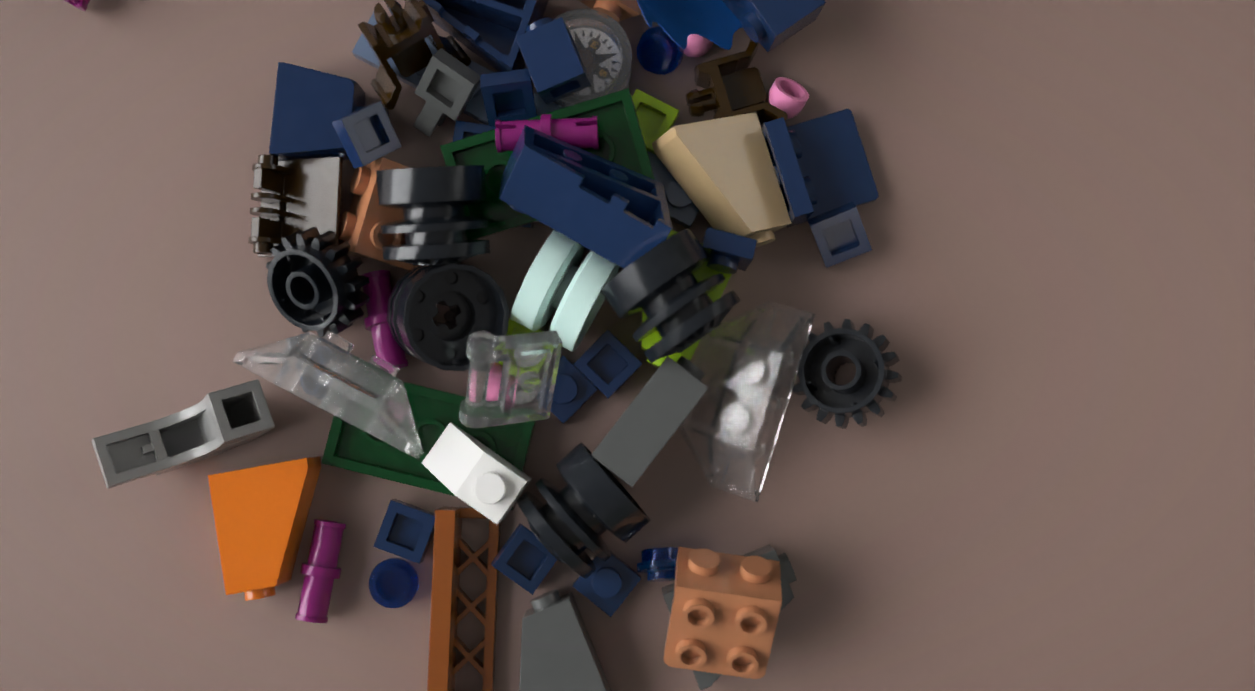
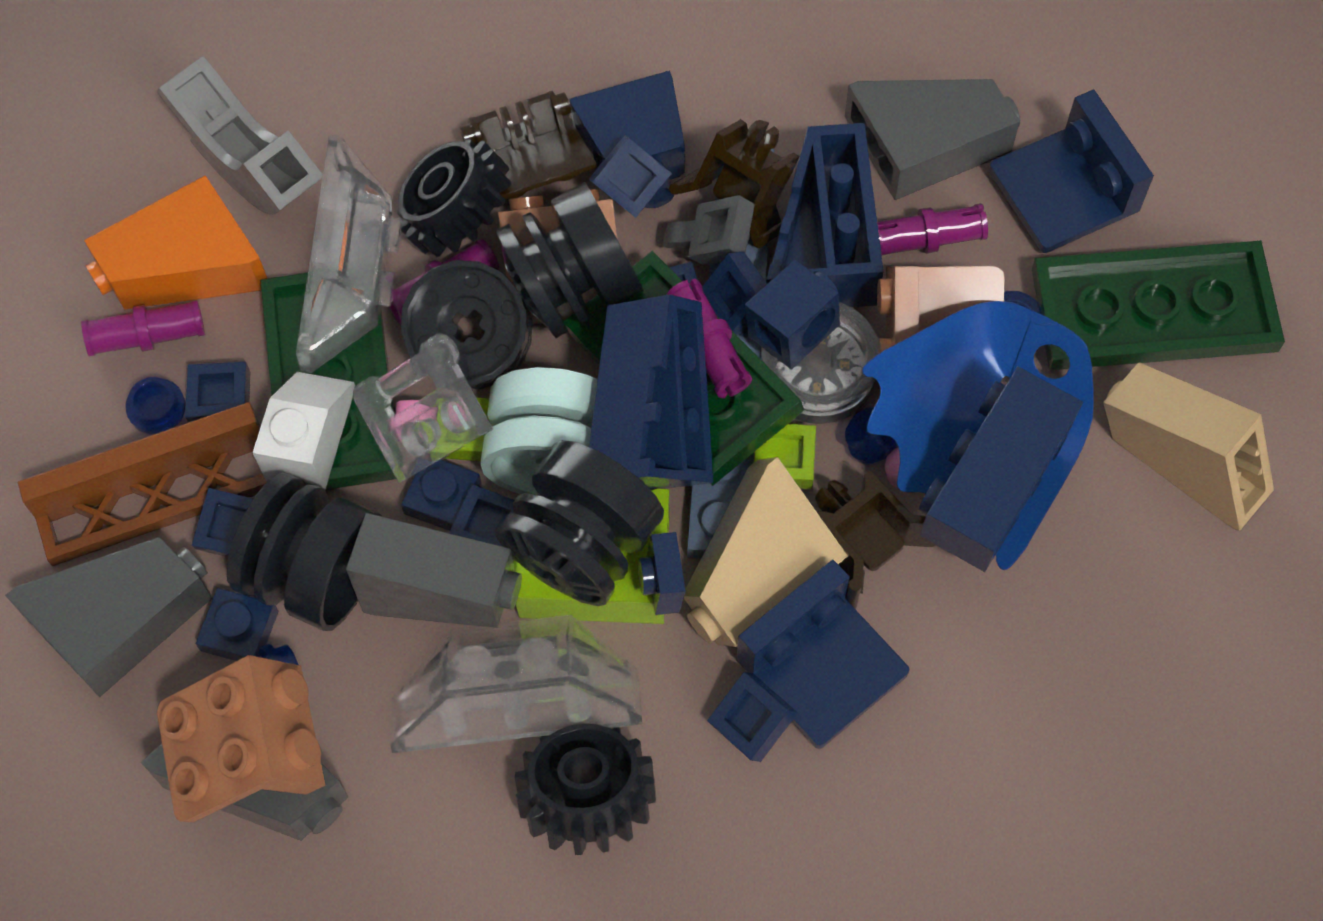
camera: 65 degrees right, 20 degrees down
(787, 96) = (888, 593): bright pink hinge -> none

